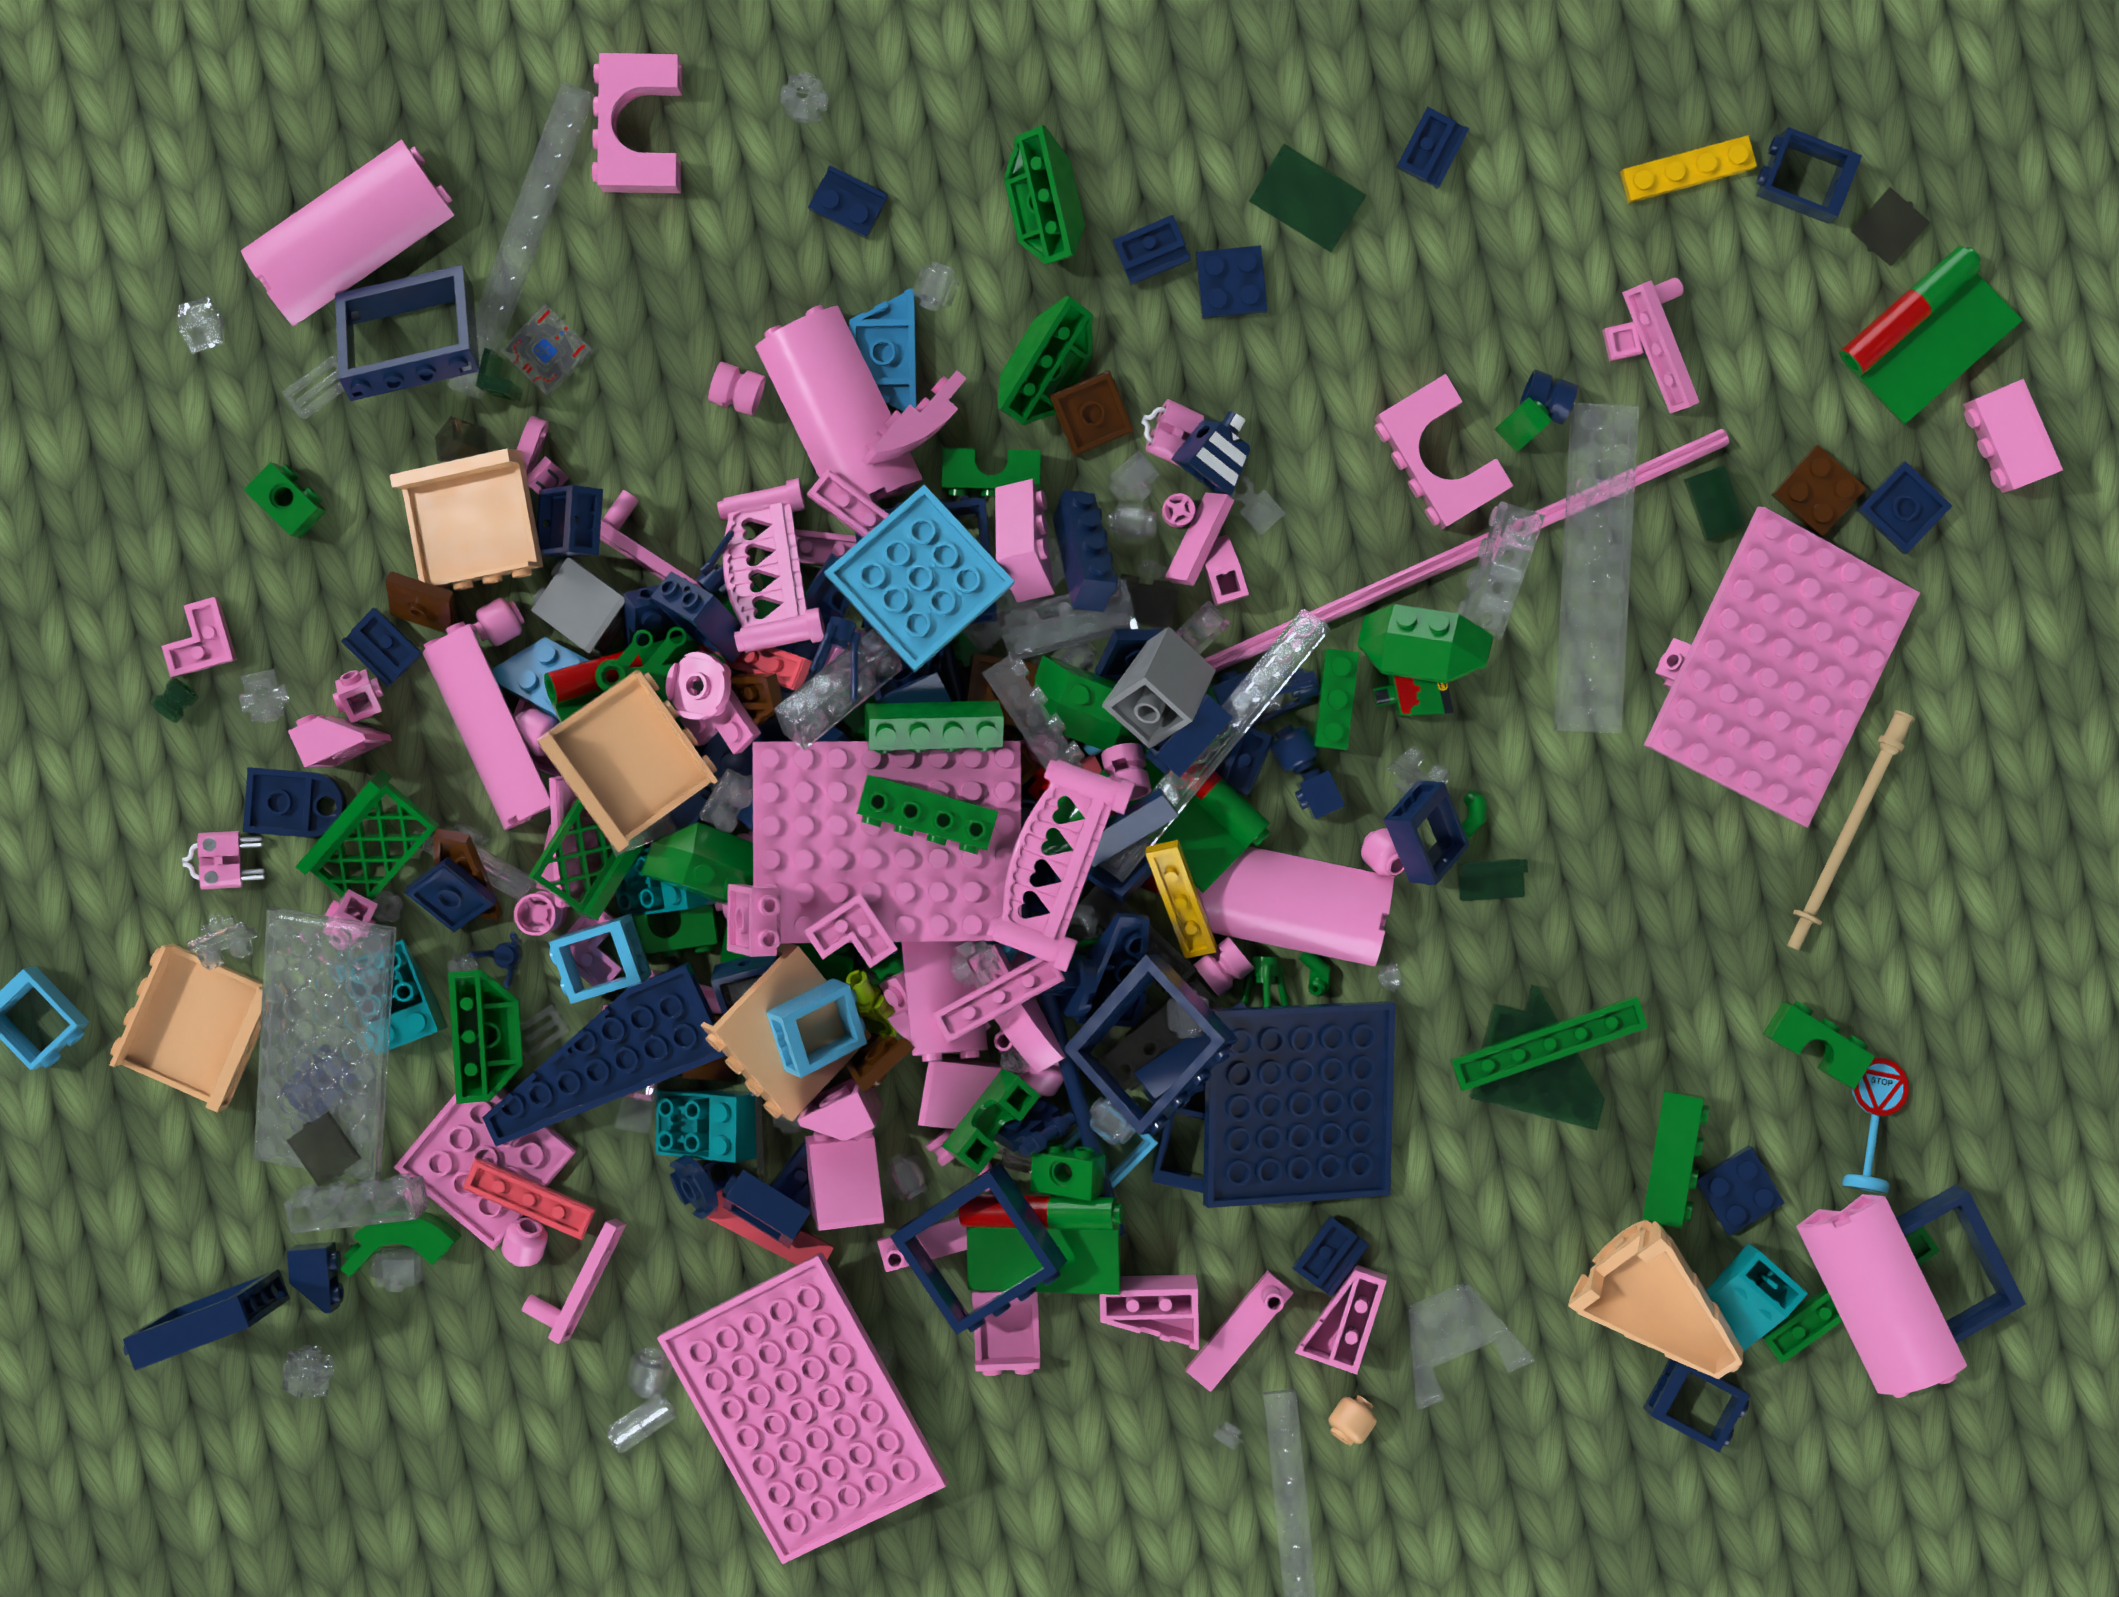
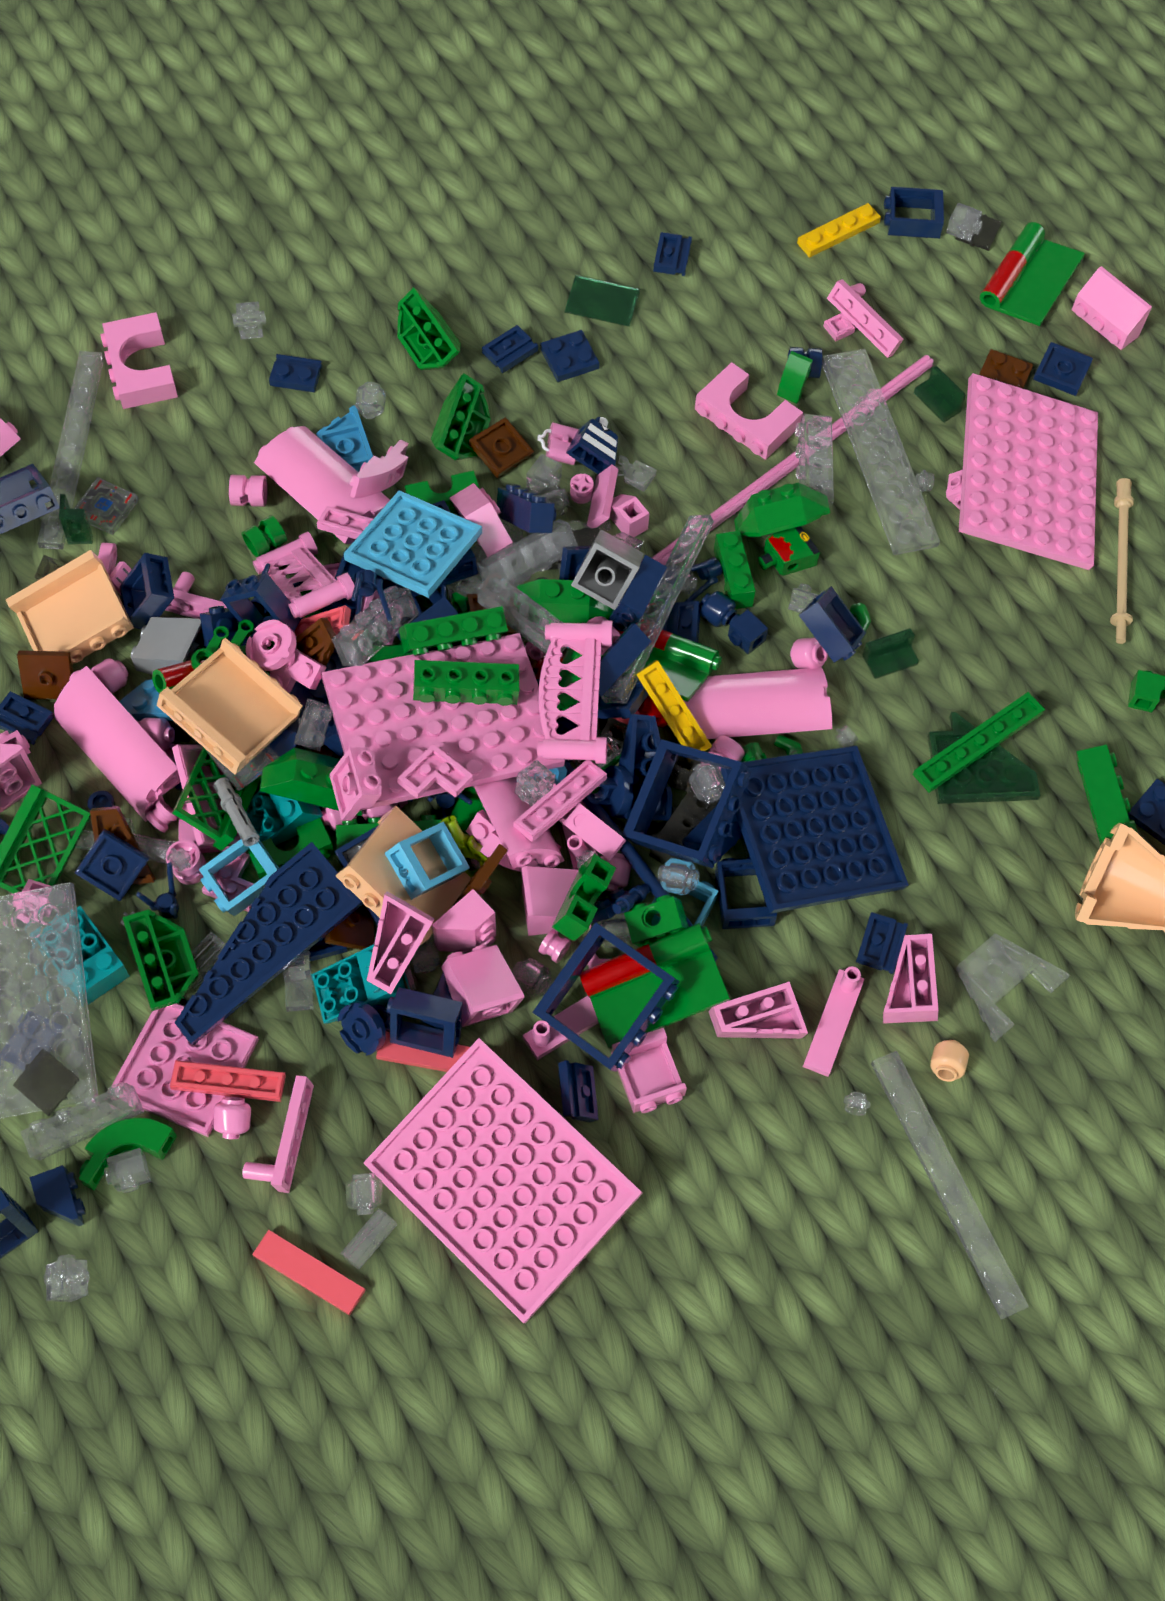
camera: 15 degrees left, 25 degrees down
(457, 793) = (100, 799): none -> dark blue tile
(524, 839) = (161, 816): none -> bright pink wheel
(528, 925) = (179, 859): none -> clear plate
(569, 1435) = (309, 1272): none -> coral tile
(604, 876) = (232, 804): none -> light grey pin
(741, 469) = (266, 535): none -> green wheel
(753, 1128) = (396, 941): none -> bright pink wedge
(917, 1332) = (578, 1091): none -> dark blue plate
(1638, 634) = (925, 480): none -> clear plate
(1871, 219) = (964, 222): none -> clear brick

